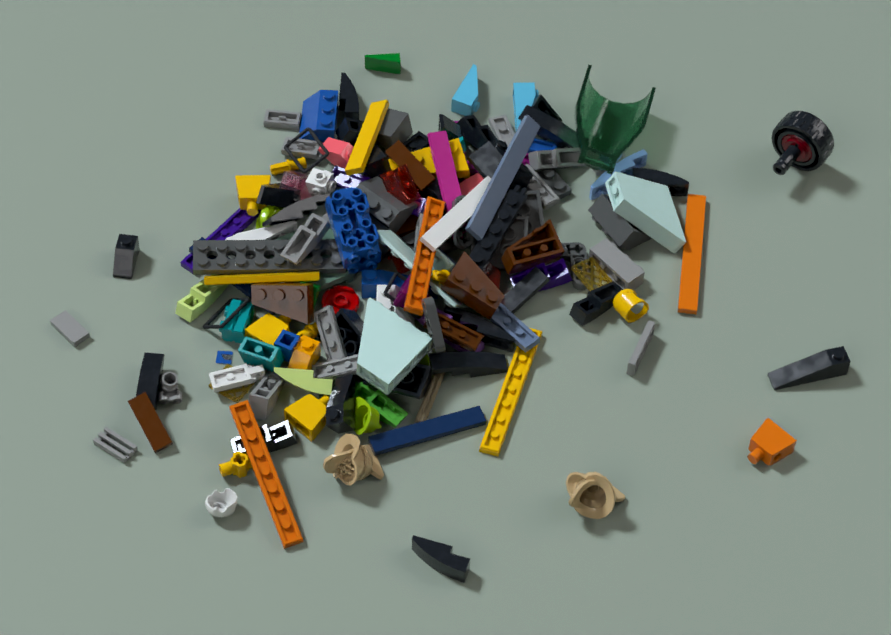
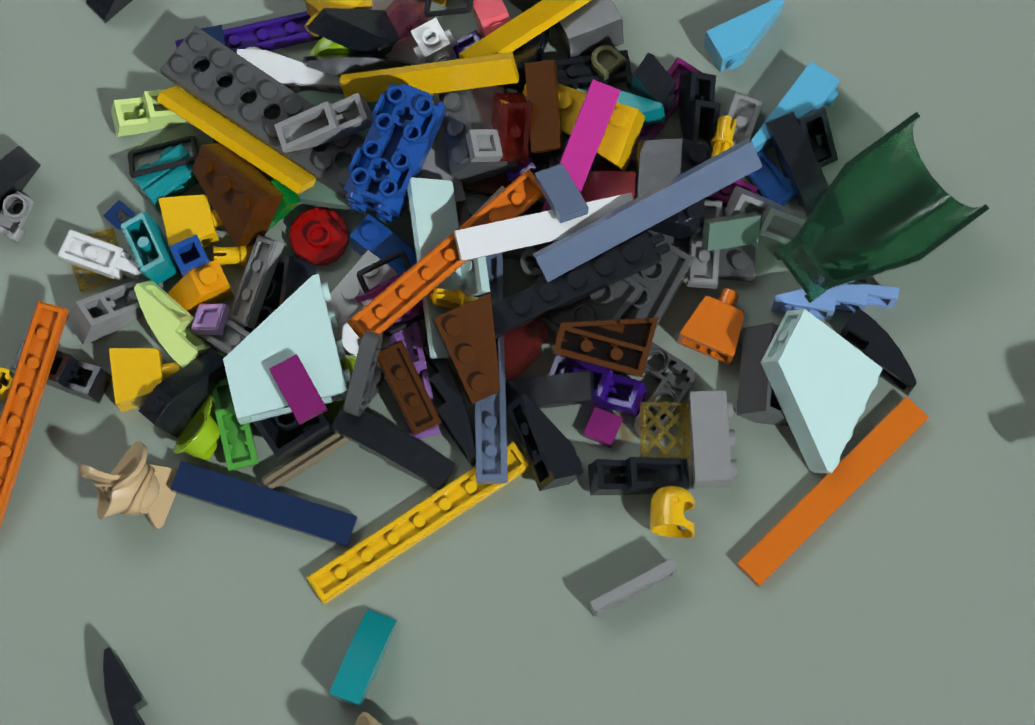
camera: 40 degrees right, 20 degrees up
(323, 365) = (210, 319): none -> lavender tile
(352, 178) = (435, 76): none -> yellow tile
(396, 199) = (484, 145): none -> light grey plate
(408, 350) = (298, 389): none -> magenta tile
(414, 140) = (607, 61): none -> olive tile
(456, 193) = (561, 193): none -> sand blue tile
(502, 135) = (724, 135): none -> yellow axle
(541, 314) = (544, 445): none -> black slope
(542, 462) = (362, 658): none -> teal slope
(545, 170) = (731, 231): none -> sand green tile
(560, 294) = (602, 427): none -> magenta tile
(574, 220) = (714, 327): none -> orange torso

